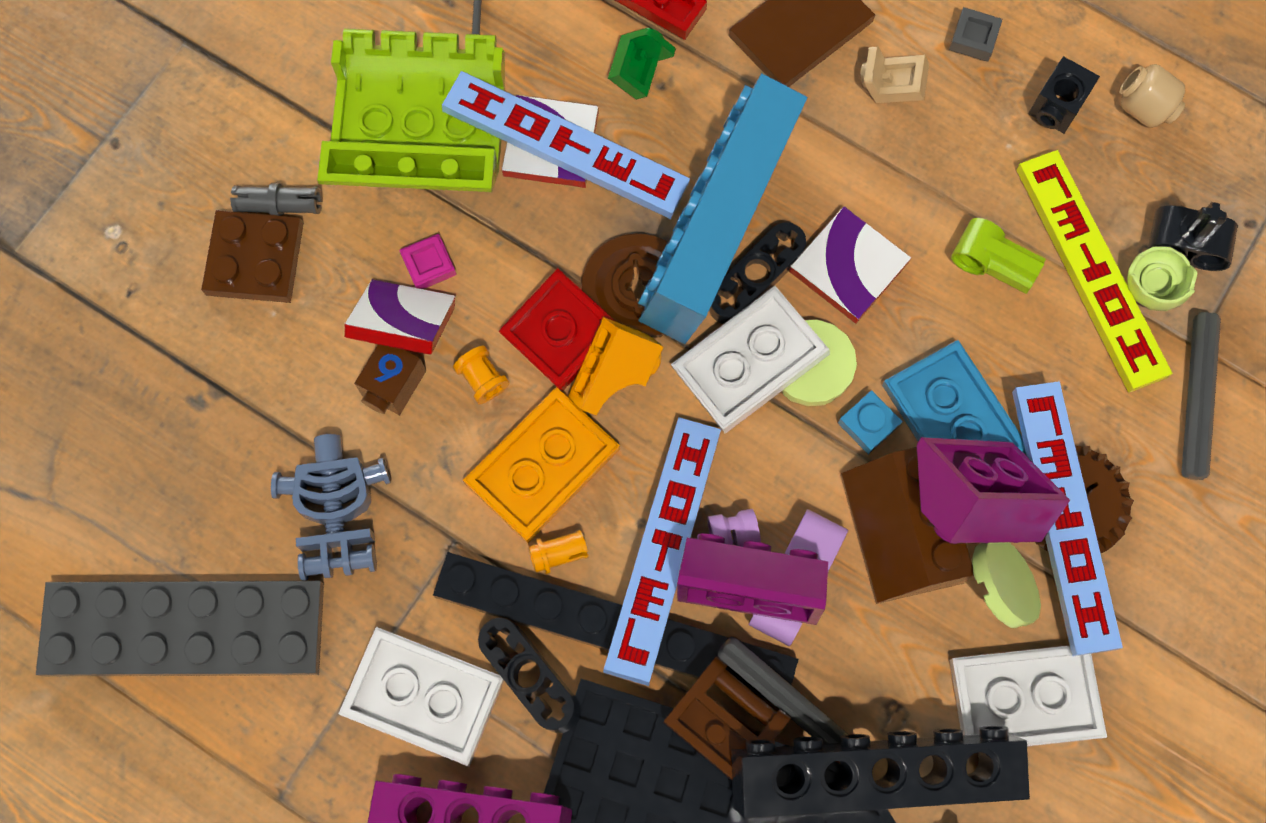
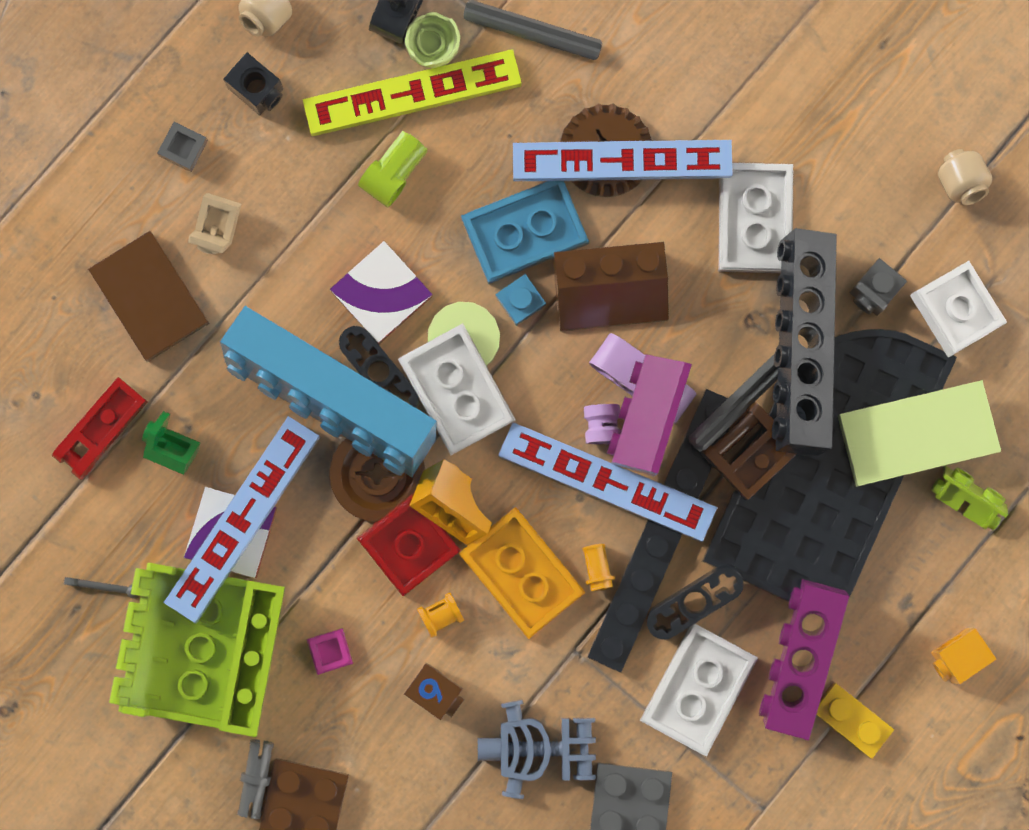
camera: 90 degrees left, 10 degrees up
(400, 317) = (383, 677): tile -> none
(985, 492) = (601, 221): magenta slope -> none
(1010, 583) = (669, 216): yellowish green tile -> none

